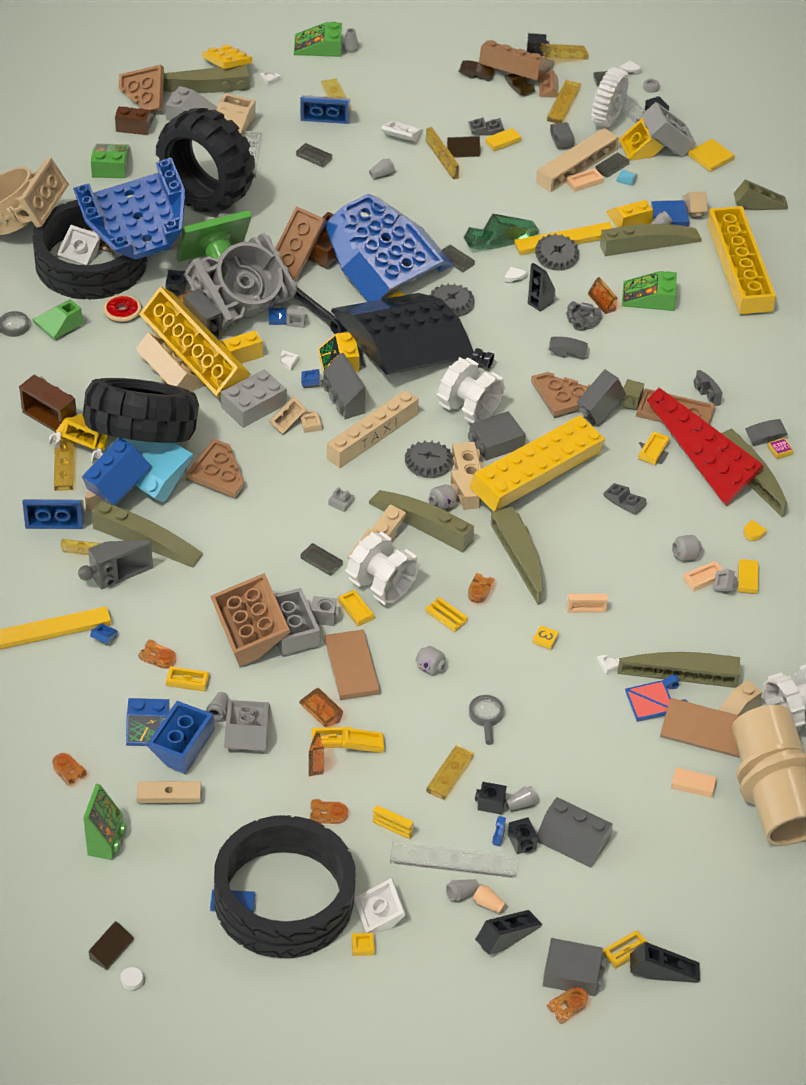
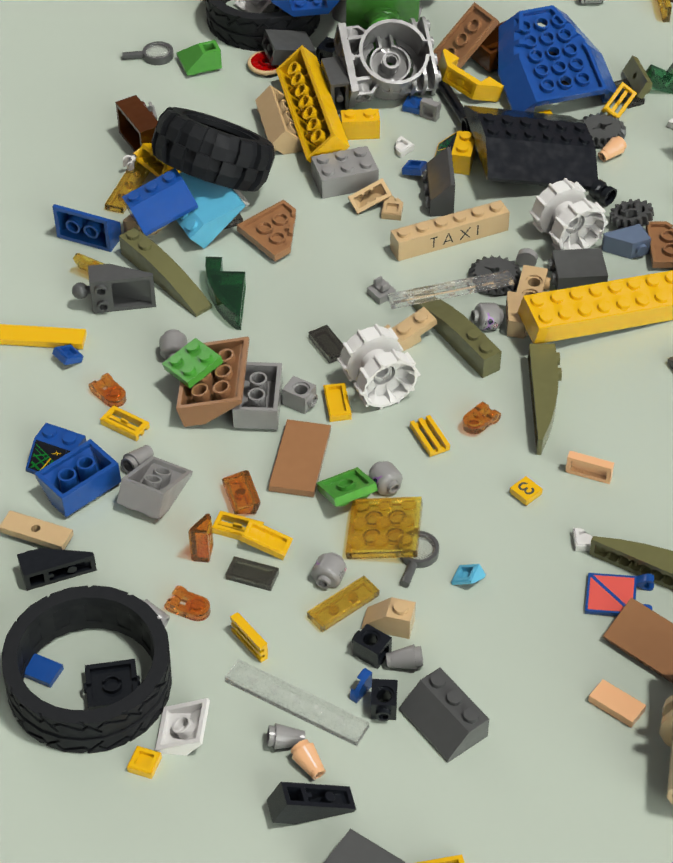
camera: 25 degrees right, 0 degrees up
(135, 288) = (283, 43): none -> dark grey brick
(193, 599) = (171, 342): none -> light grey head
(199, 816) = (49, 566): none -> black slope
(209, 537) = (226, 291): none -> clear green slope
(227, 609) = (192, 362): none -> bright green plate
(305, 894) = (110, 682): none -> black plate
(317, 285) = (465, 83): none -> yellow slope
(364, 771) = (252, 573): none -> clear smoke tile
(401, 482) = (450, 289): none -> clear tile
(405, 677) = (347, 487): none -> bright green plate
(426, 749) = (329, 569): none -> light grey head
(449, 436) = (527, 257): none -> light grey tile
(452, 280) = (611, 111): none -> yellow tile
(452, 701) = (384, 528): none -> clear yellow plate
(461, 241) = (637, 77): none -> olive tile
(471, 314) = (613, 148): none -> light nougat cone
(494, 769) = (392, 617): none -> tan slope
(517, 372) = (631, 213): none -> dark grey gear
(524, 399) = (627, 242): none -> sand blue slope
(534, 718) = (468, 574): none -> medium azure slope

